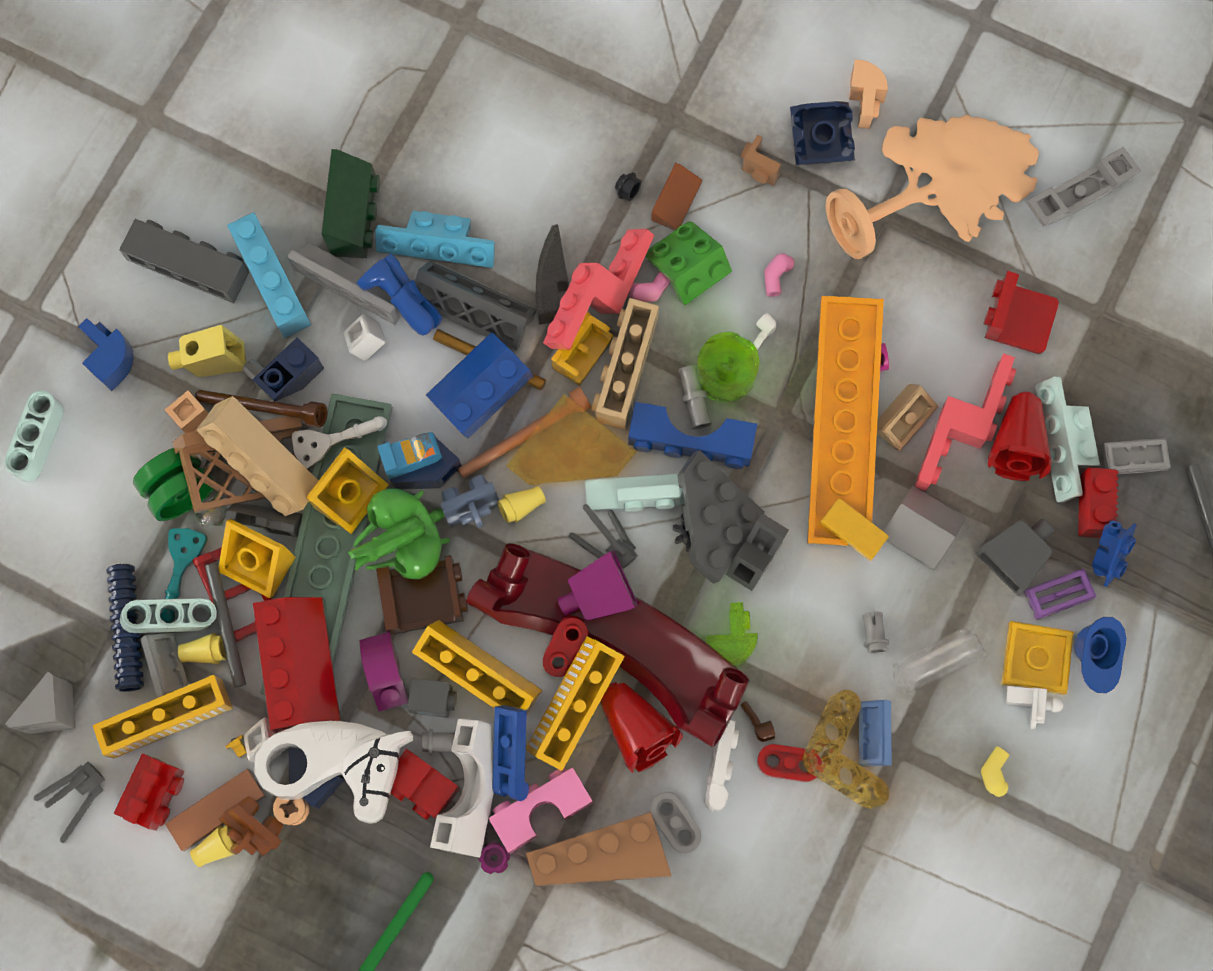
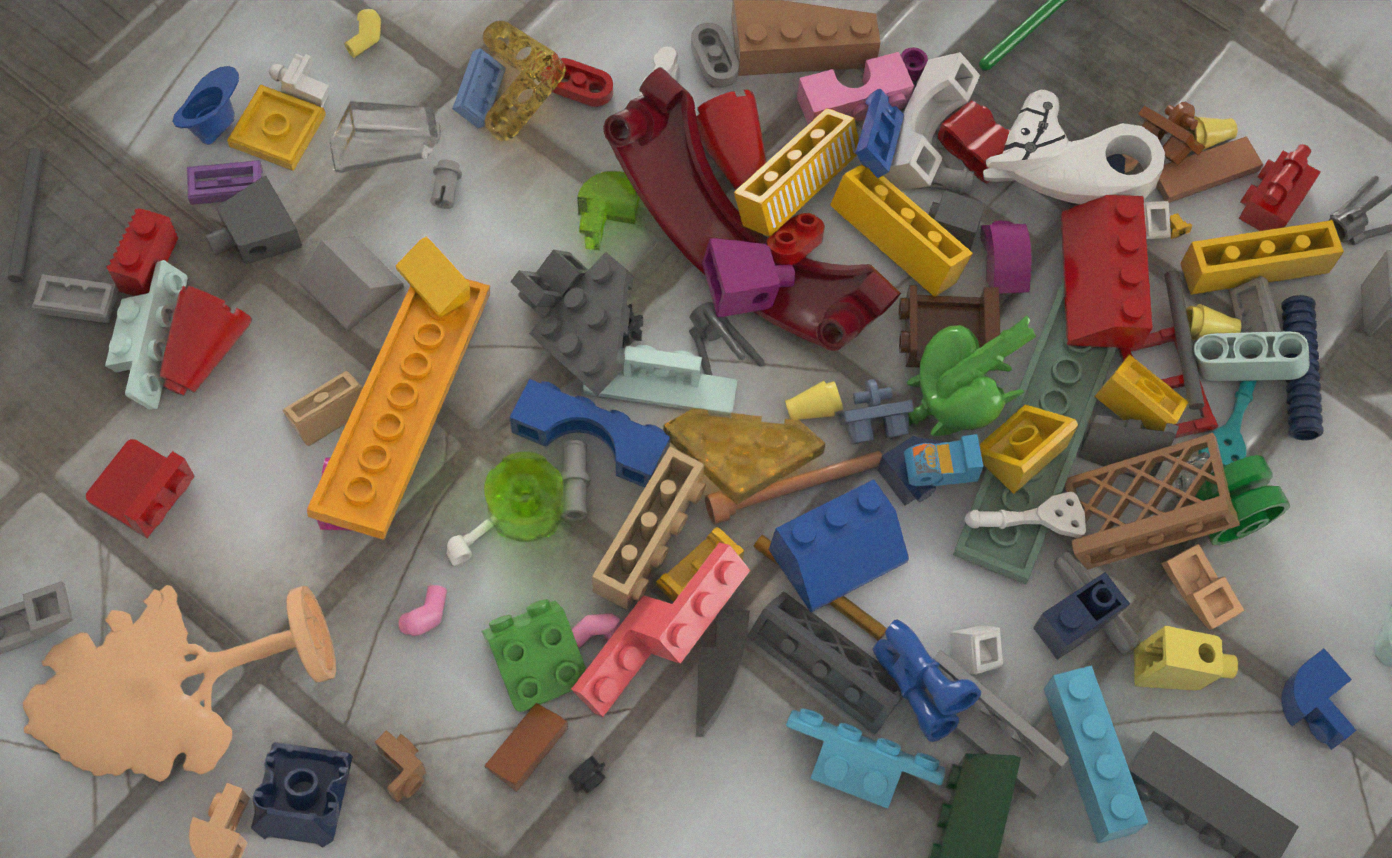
camera: 175 degrees left, 10 degrees down
(257, 456) = (1133, 481): tan brick -> none
(313, 413) = (1058, 536): reddish brown piece -> none
(763, 731) = (595, 119): reddish brown hand -> none
(966, 422) = (257, 376): coral bracket -> none
(1120, 543) = (149, 191): blue hinge -> none

